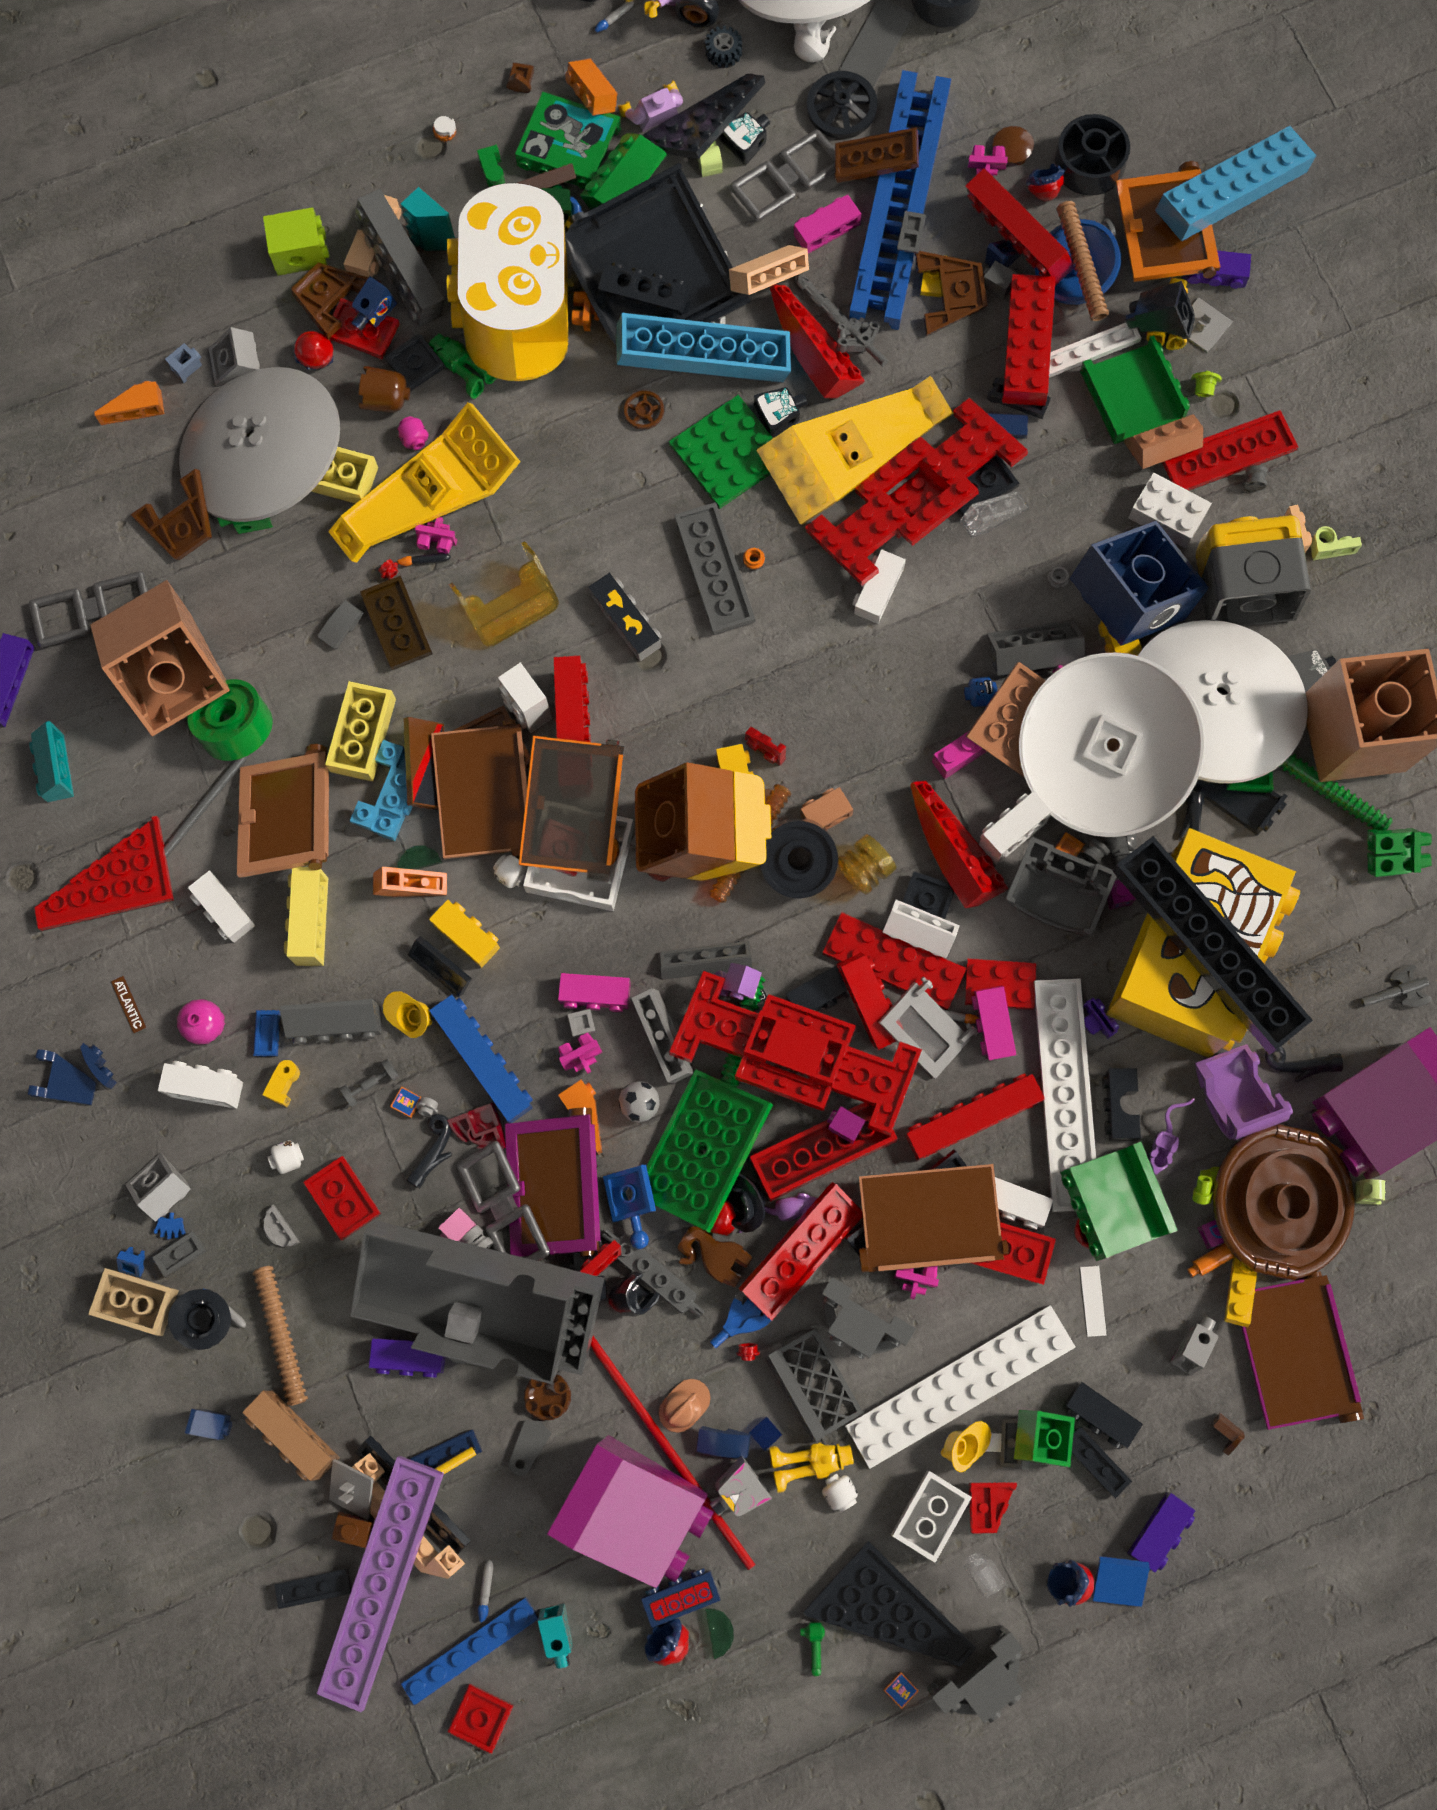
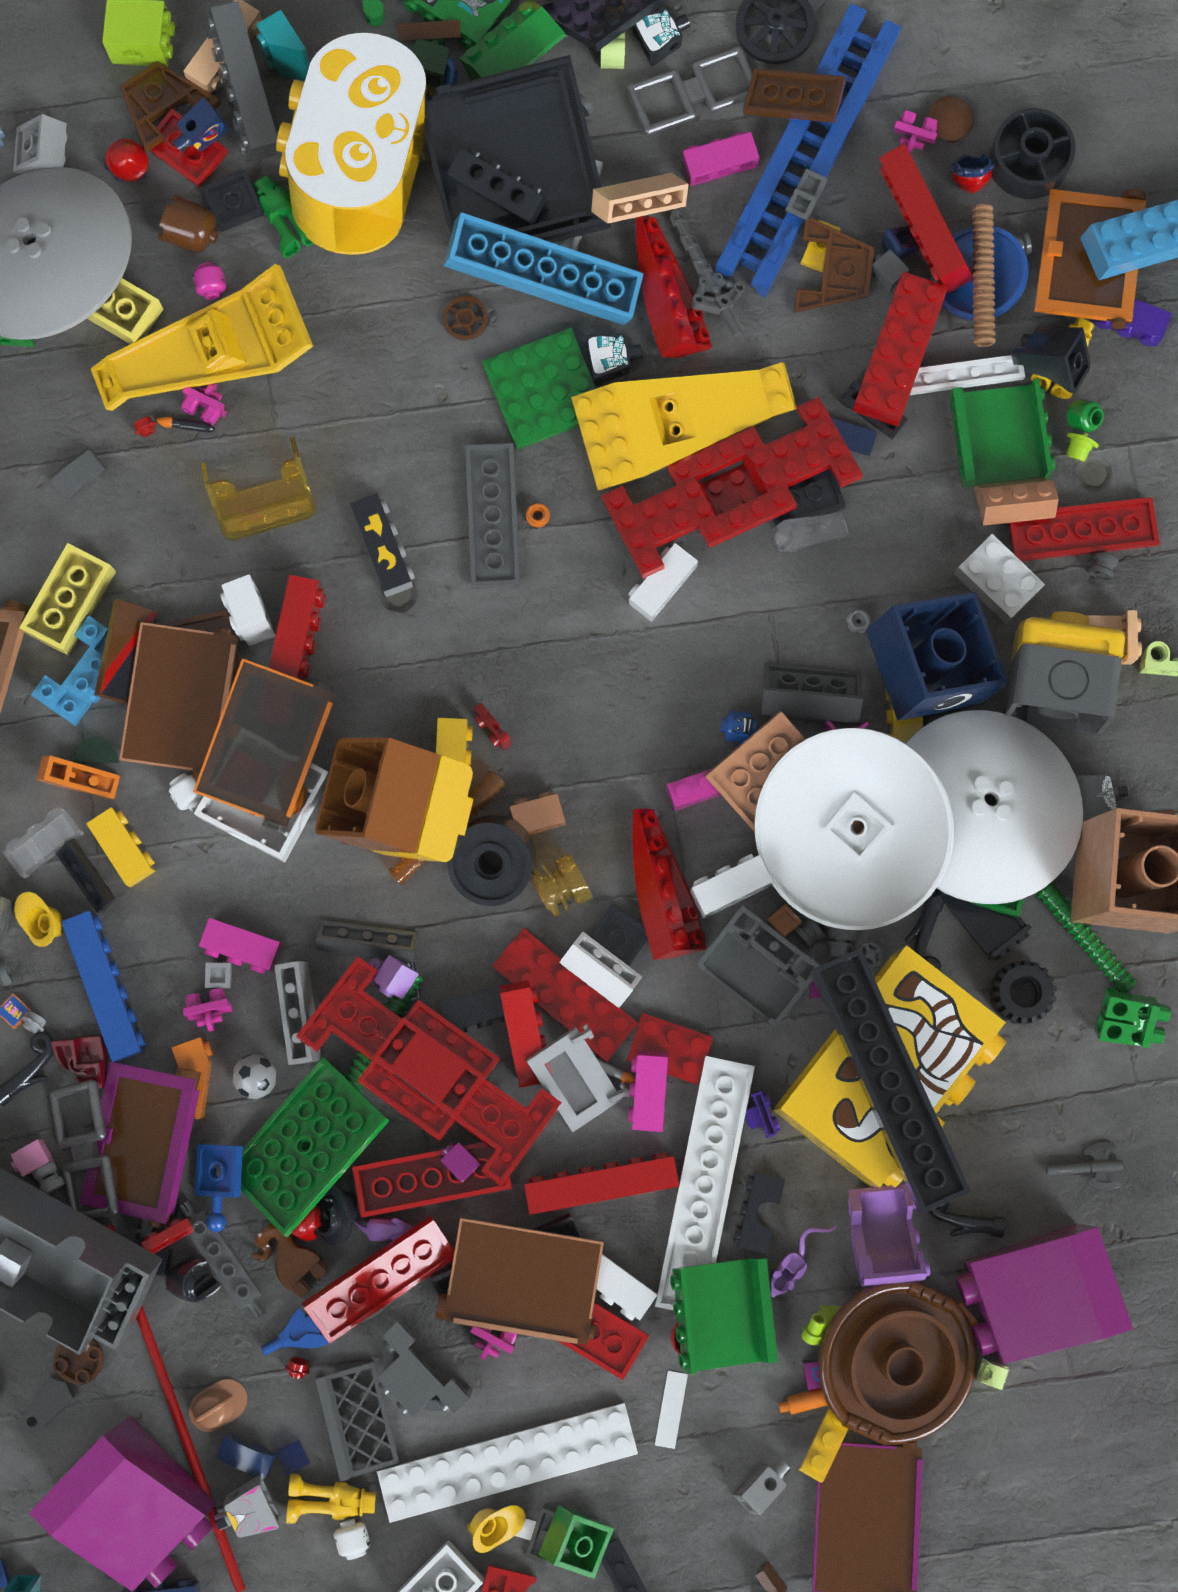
camera: 10 degrees right, 5 degrees up
(393, 946) = (42, 841): none -> clear brick
(396, 622) = (137, 488): dark brown plate -> none
(584, 317) = (427, 197): orange hips -> none
(1102, 1416) = (644, 1533): black brick -> none
(1202, 356) = (1084, 415): none -> green head
(1208, 325) = (1103, 378): light grey piece -> none
(1308, 841) = (1043, 986): none -> black tyre

